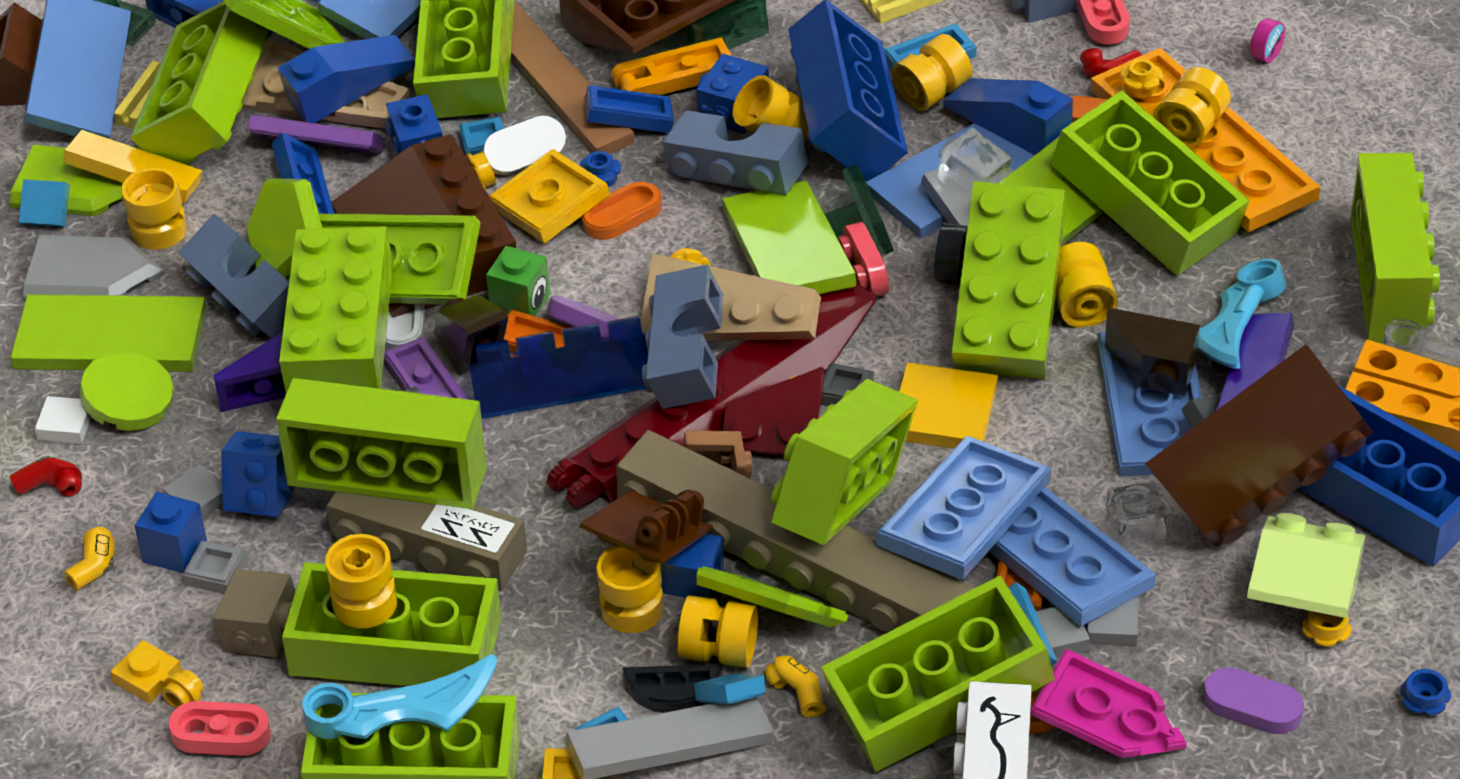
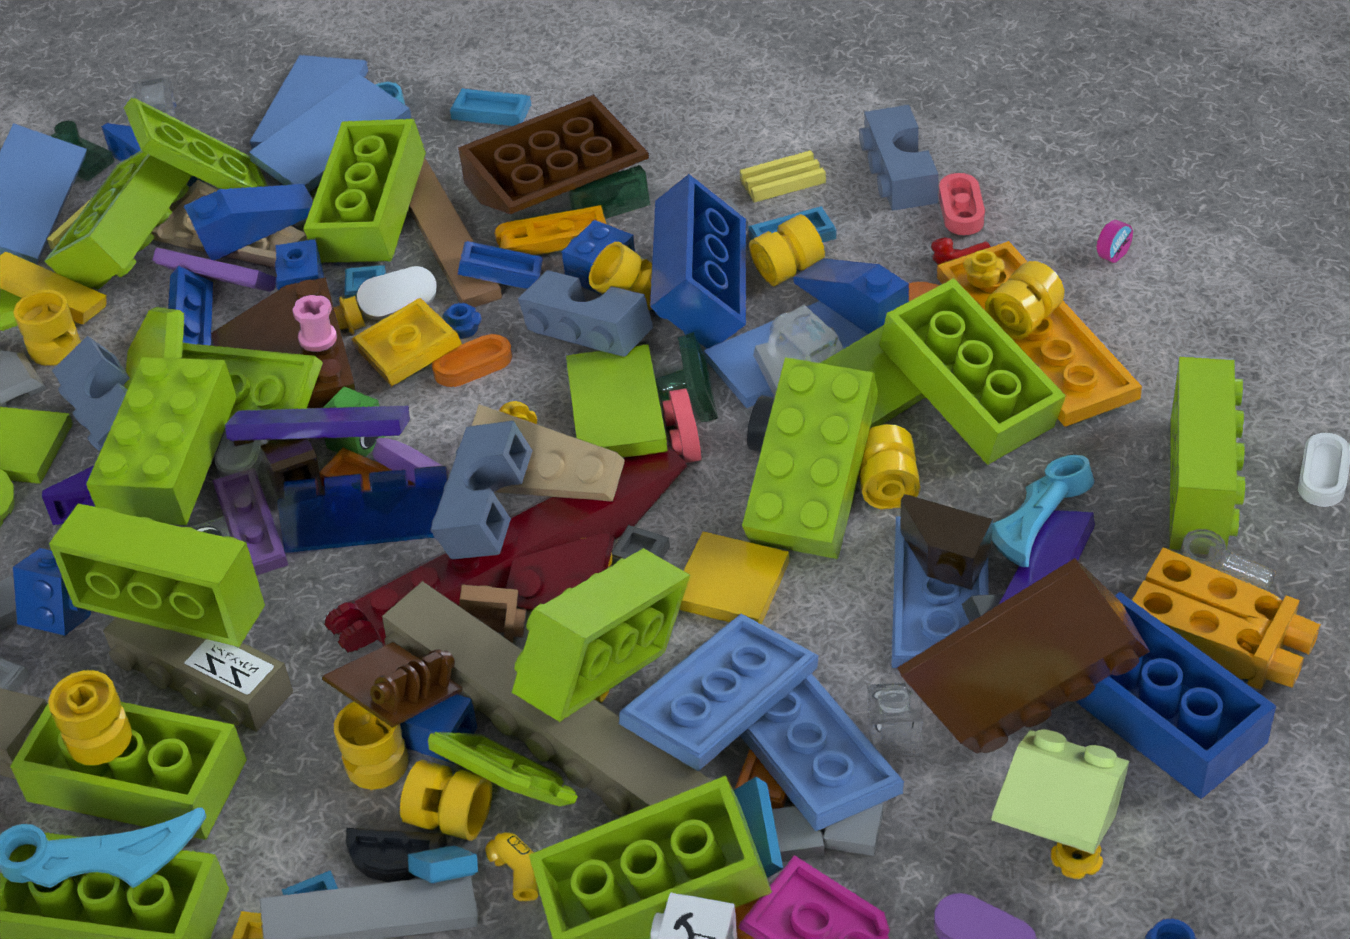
camera: 10 degrees right, 0 degrees up
(465, 187) = (313, 316): none -> bright pink bush
(495, 283) = (317, 423): none -> dark purple tile

